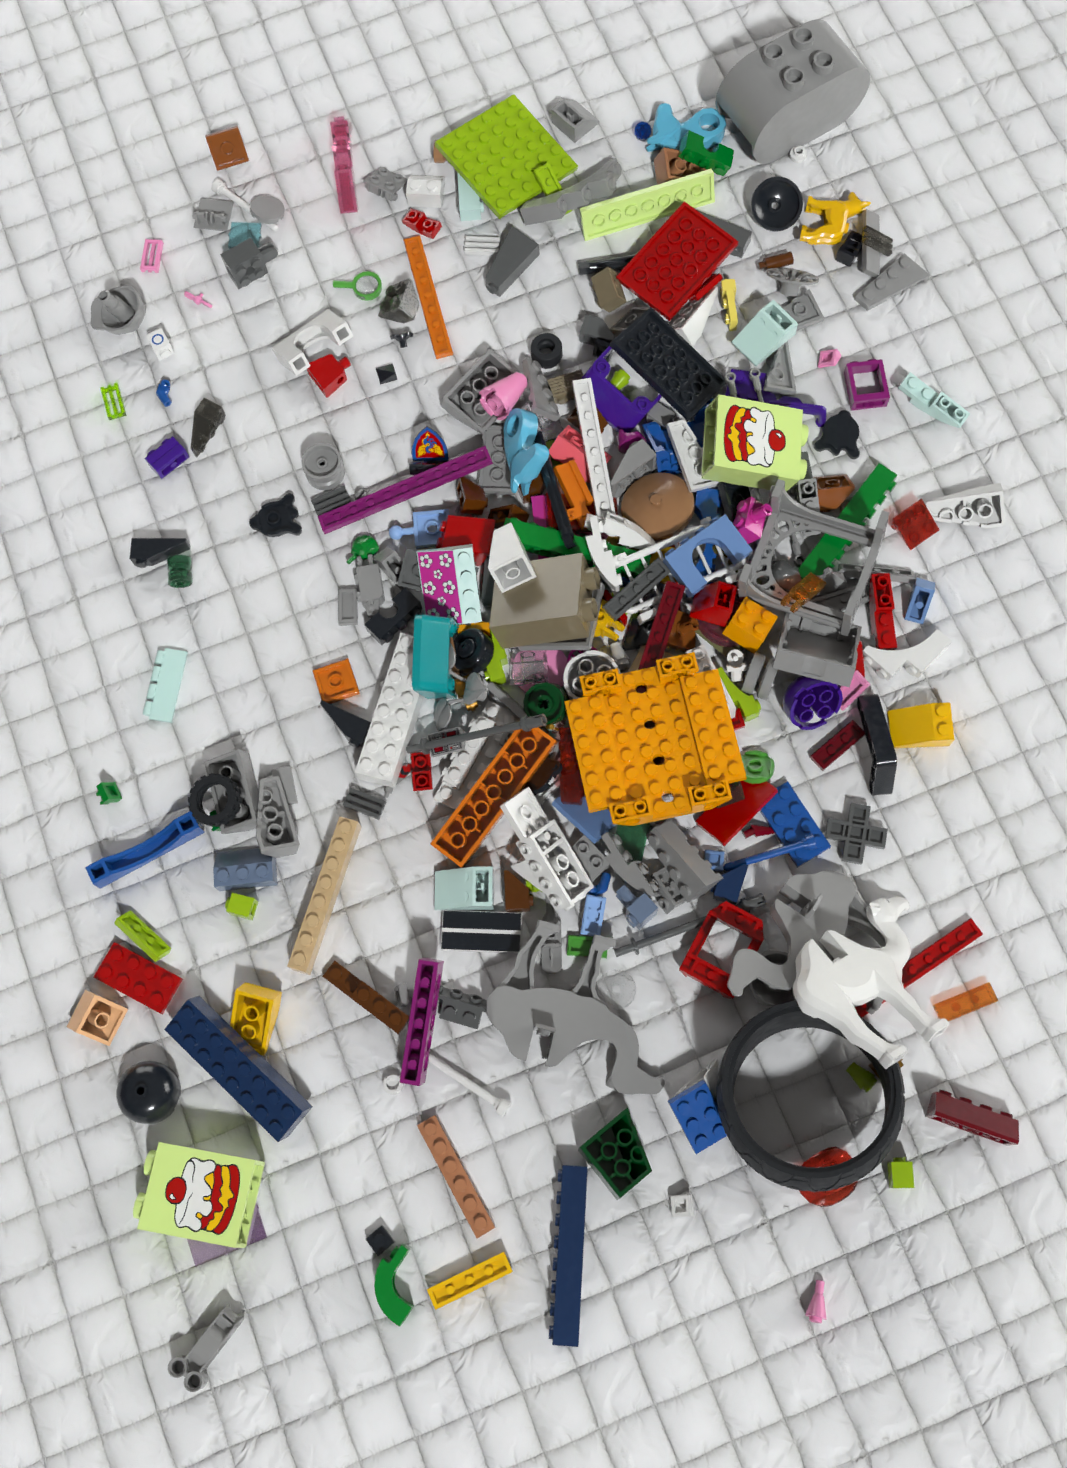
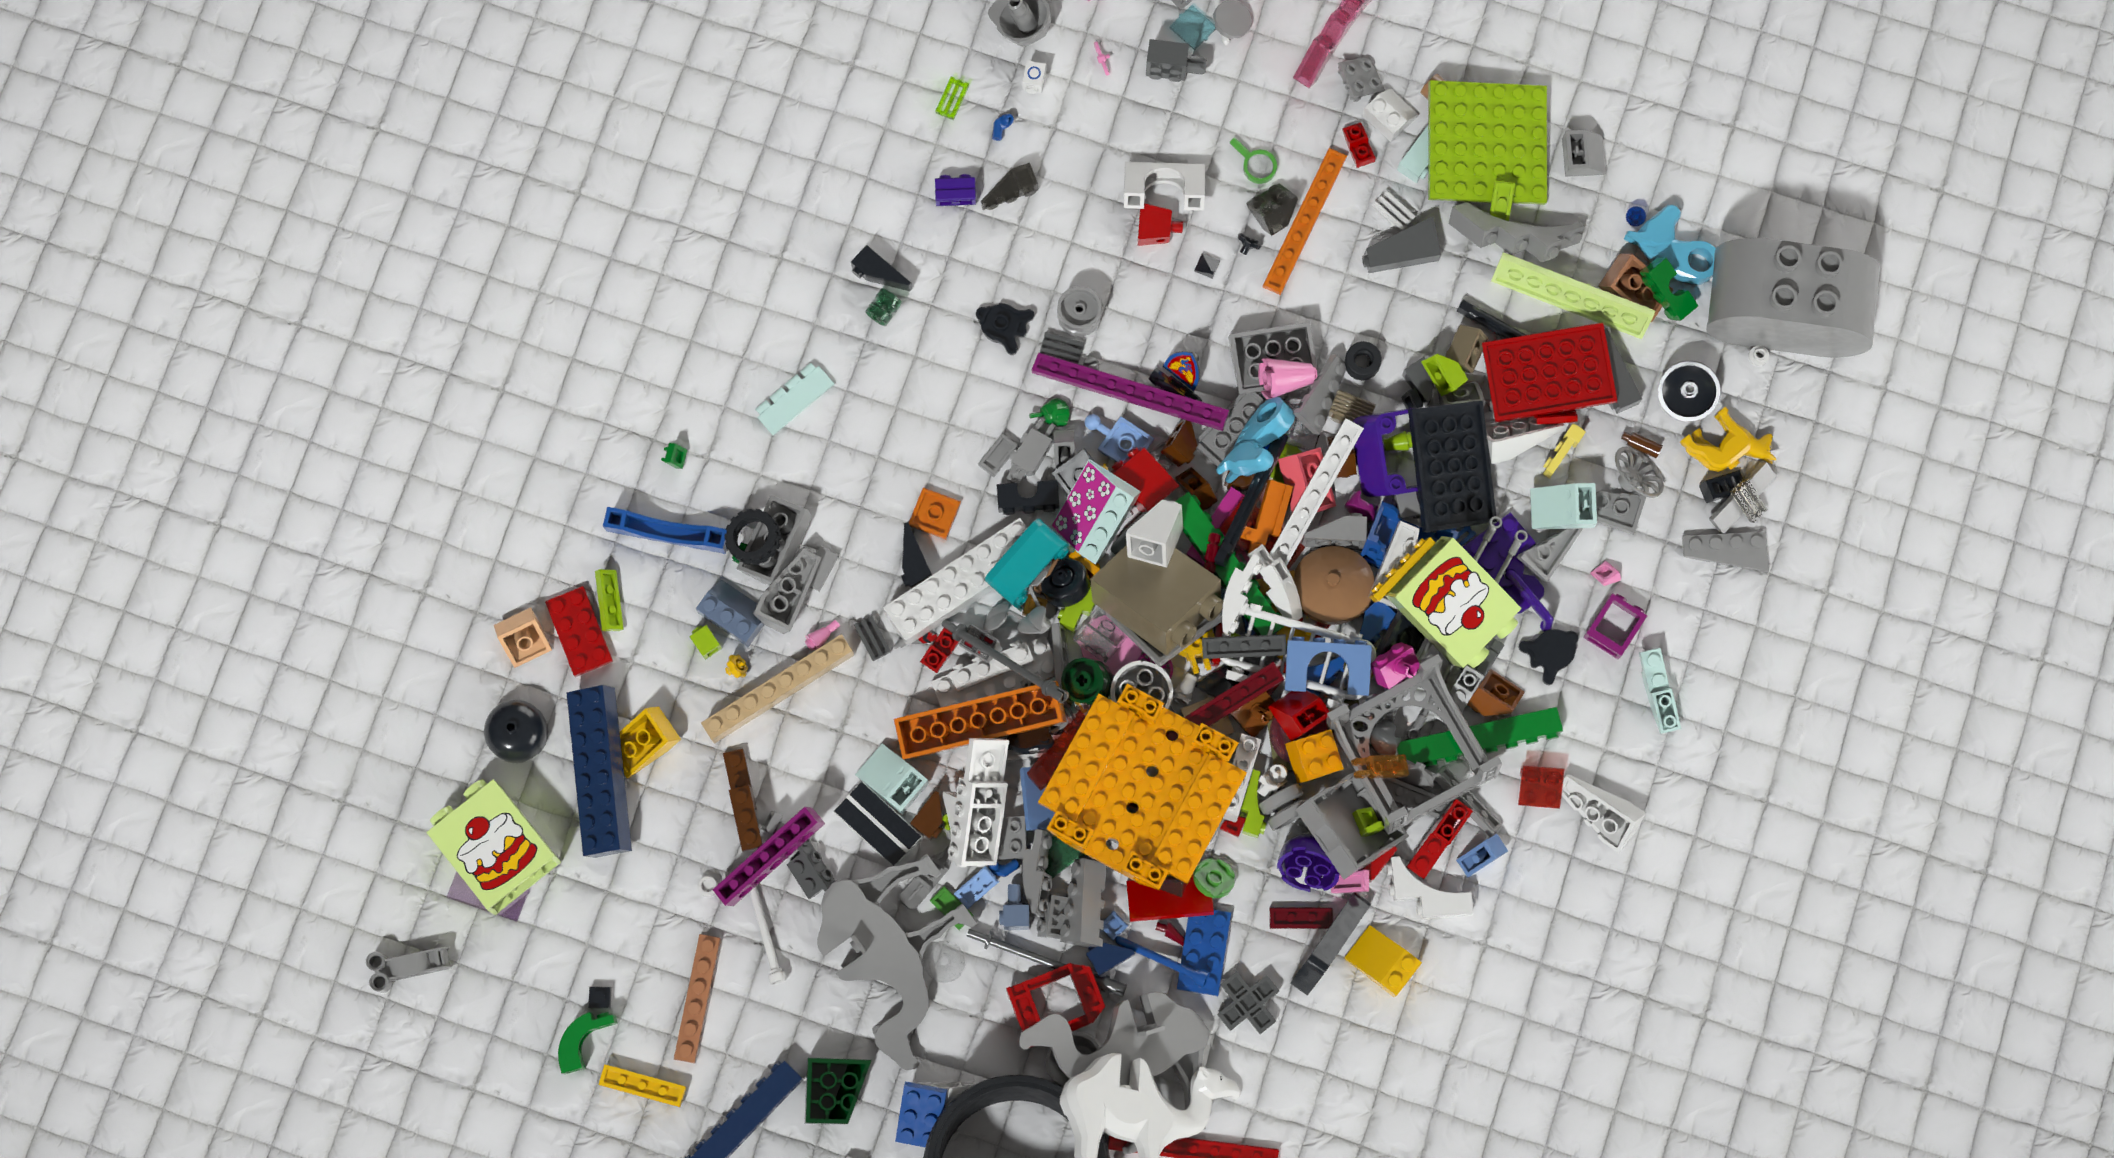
camera: 35 degrees right, 5 degrees up
(280, 905) = (736, 666): none -> yellow piece
(324, 834) = (818, 638): none -> bright pink cone
(557, 542) = (1211, 551): none -> dark red axle
(609, 312) = (1444, 373): none -> lime slope
(697, 458) = (1395, 575): none -> yellow plate
(825, 640) = (1367, 822): none -> lime tile

